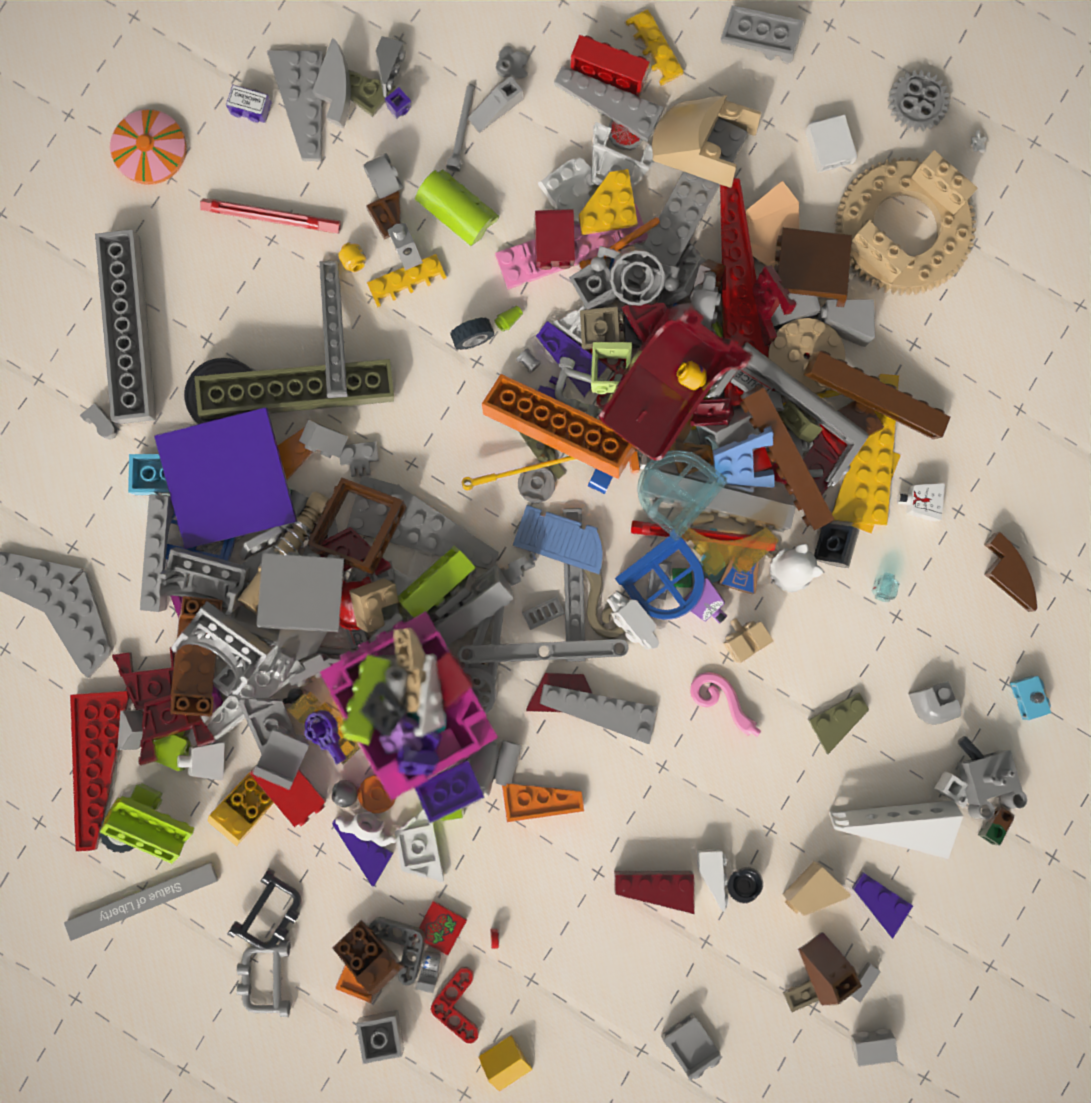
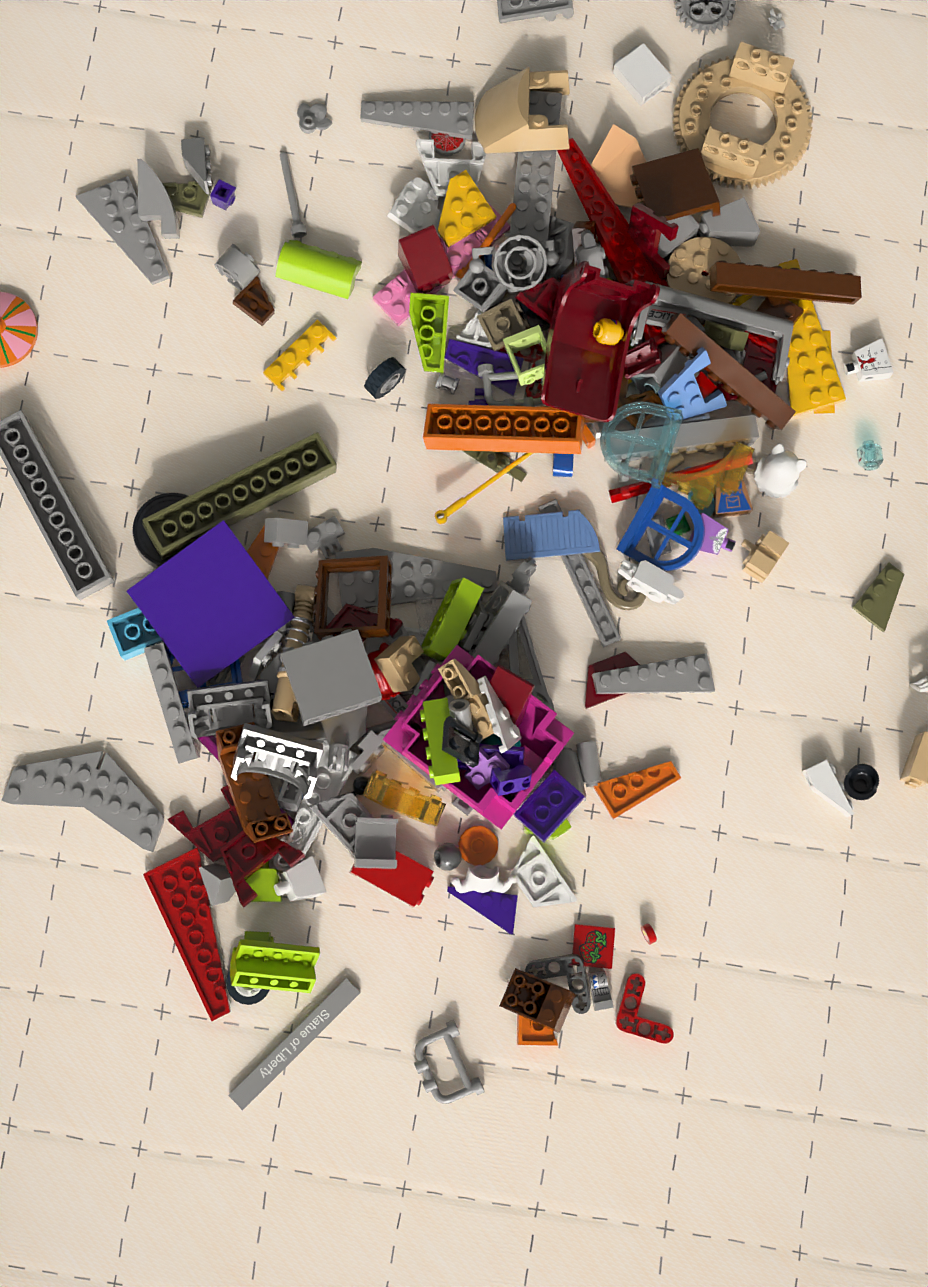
camera: 25 degrees left, 5 degrees down
(97, 416) = (63, 603): light grey leg -> none
(240, 810) = (355, 914): yellow slope -> none
(248, 104) = (79, 251): brick -> none
(271, 215) = (144, 346): piece -> none
(281, 931) = (445, 995): black bar -> none
(325, 733) = (407, 802): dark purple pin -> none
(333, 329) = (252, 426): light grey tile -> none
(352, 257) = (239, 353): yellow head -> none
(380, 1037) = (581, 1071): light grey brick -> none
(401, 240) = (281, 317): light grey torso -> none
(496, 104) = (315, 160): light grey slope -> none
(504, 1063) = (709, 1048): yellow slope -> none
(508, 318) = (410, 353): lime cone -> none
(530, 651) = (591, 637): light grey beam -> none
(534, 300) = (429, 324): none -> lime wedge
(536, 485) = (504, 495): light grey tile -> none
(546, 619) = (551, 622): light grey slope -> none
(610, 65) = (407, 82): red brick -> none
(656, 46) = (441, 49): yellow hinge -> none
(659, 888) = (788, 818): dark red wedge -> none
(691, 1046) = (878, 956): light grey panel -> none
(742, 721) = (789, 632): bright pink plant -> none
(836, 545) = (808, 434): black brick -> none

